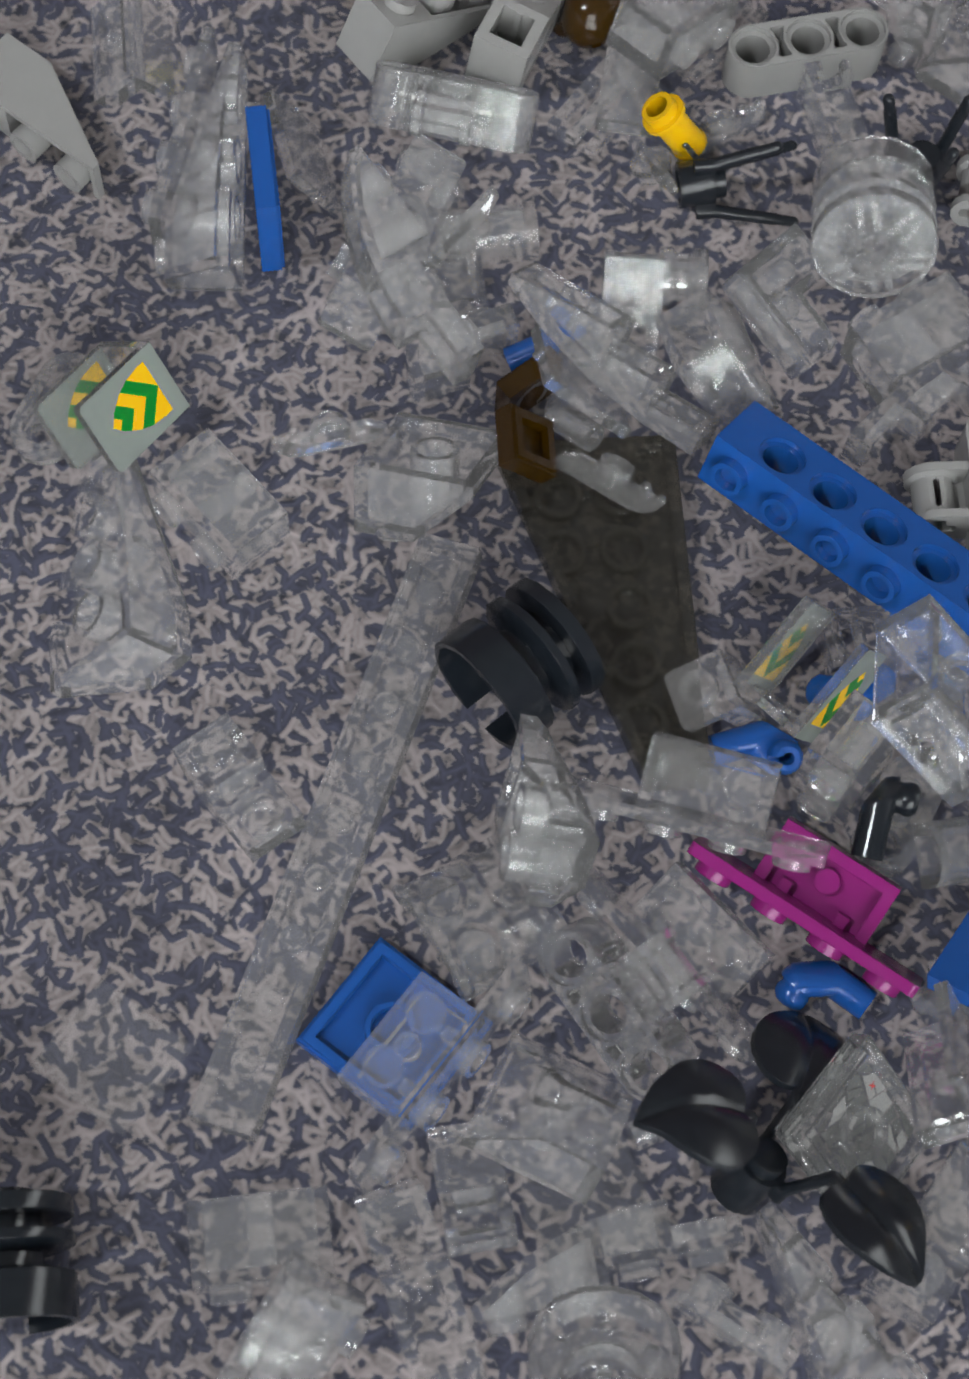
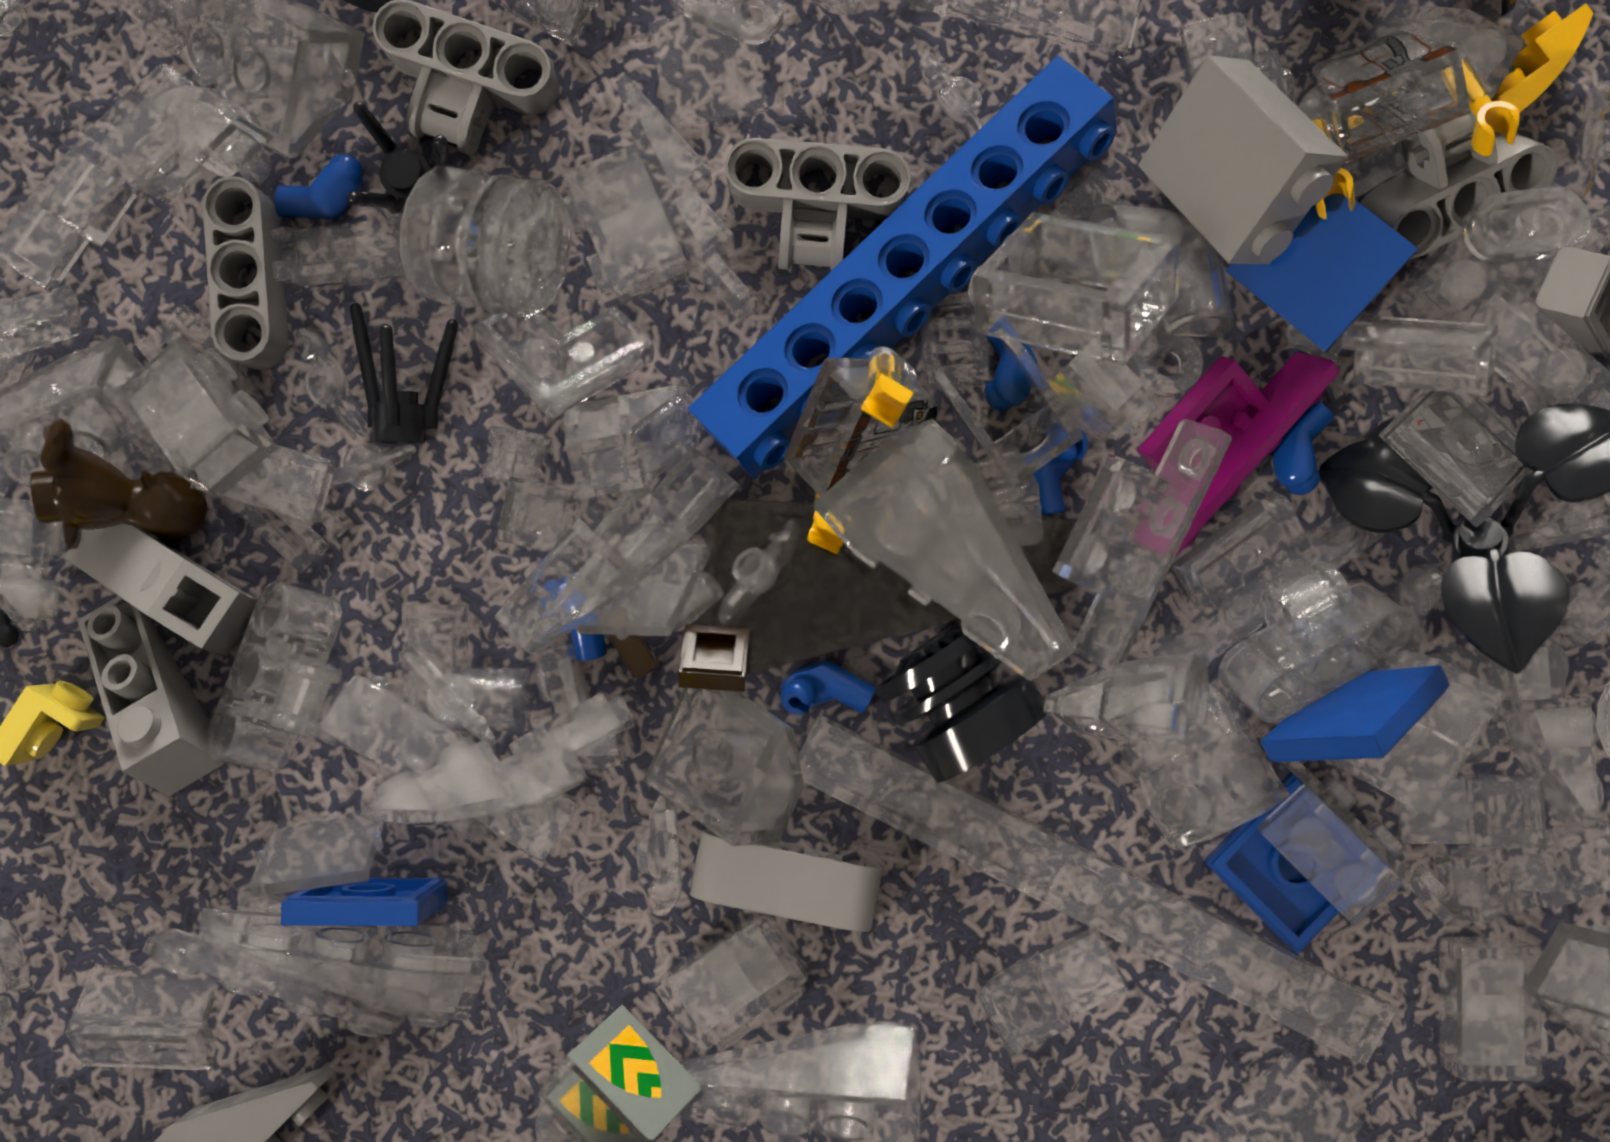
camera: 75 degrees left, 20 degrees up
(317, 545) = (786, 883): none -> light grey beam
(507, 554) = (821, 683): none -> blue arm
(561, 1025) = (1359, 717): none -> blue tile
(666, 118) = (328, 444): yellow pin -> none
(677, 611) = (936, 525): none -> clear wedge
(759, 541) = (848, 417): none -> clear torso
(877, 814) = (1179, 377): black arm -> none
(910, 118) = (326, 195): none -> blue arm

